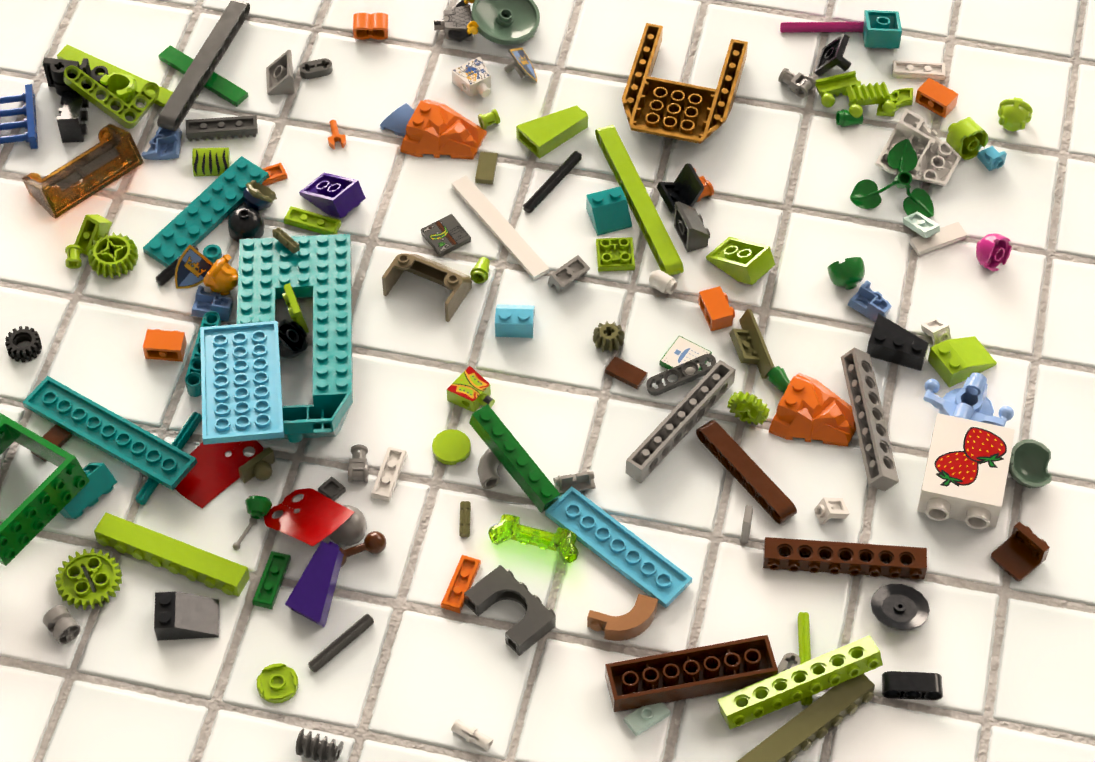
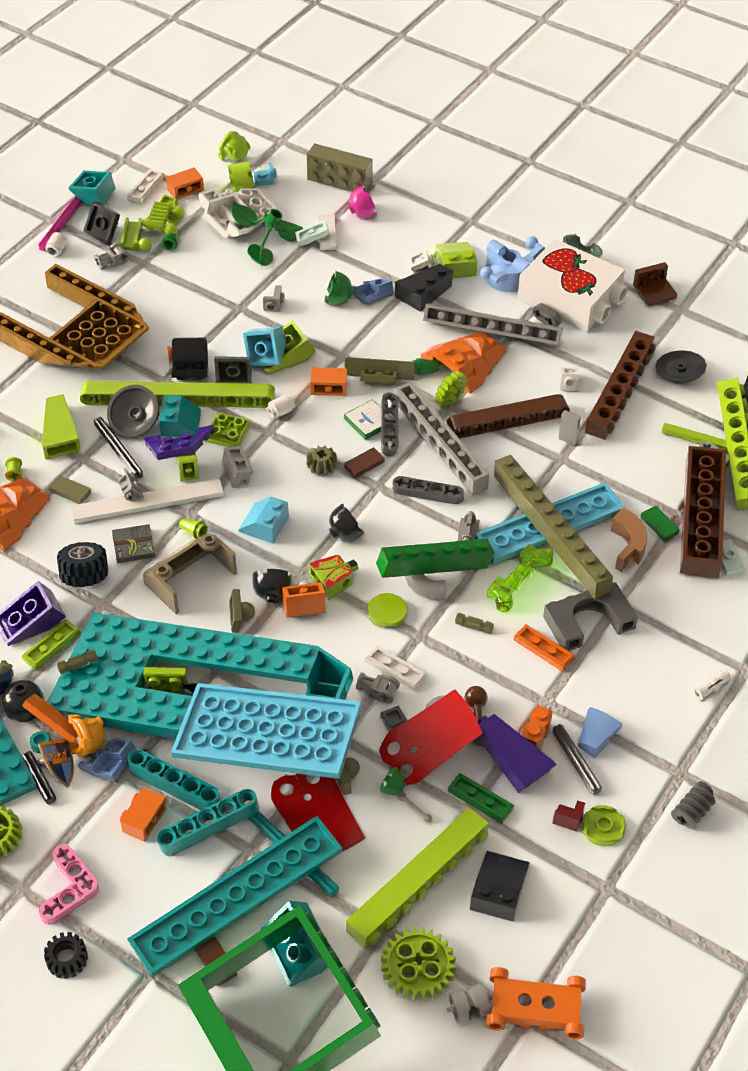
camera: 70 degrees left, 5 degrees down
(86, 329) = (76, 888): none -> bright pink beam
(86, 690) = (508, 1009): none -> orange piece
(168, 388) = (203, 831): none -> teal beam
(230, 241) = (51, 717): none -> orange tile
(275, 651) = (569, 817): none -> dark red panel
(355, 599) = (538, 726): none -> orange brick
(377, 651) = (597, 731): none -> medium blue slope
(396, 205) = (82, 564): none -> black wheel
(399, 335) = (239, 610): none -> olive tile
(427, 376) = (303, 600): none -> orange brick
(435, 348) = (270, 584): none -> black cylinder
(506, 207) = (130, 486): none -> light grey hinge
(534, 379) = (344, 524): none -> black cylinder
(548, 235) = (187, 467): none -> lime slope
(558, 218) = (183, 445): none -> dark purple wing
(593, 172) = (125, 406): none -> dark grey dish
(598, 542) = (553, 527): none -> olive brick
(612, 434) = (427, 492): none -> dark grey beam
(665, 641) = (660, 523): none -> green tile
(729, 238) = (265, 345): none -> medium azure slope
(788, 35) = (56, 244): none -> white brick
(807, 229) = (273, 303): none -> light grey bracket
(914, 464) = (546, 315): none -> dark grey beam
(1031, 213) = (339, 168): none -> olive brick

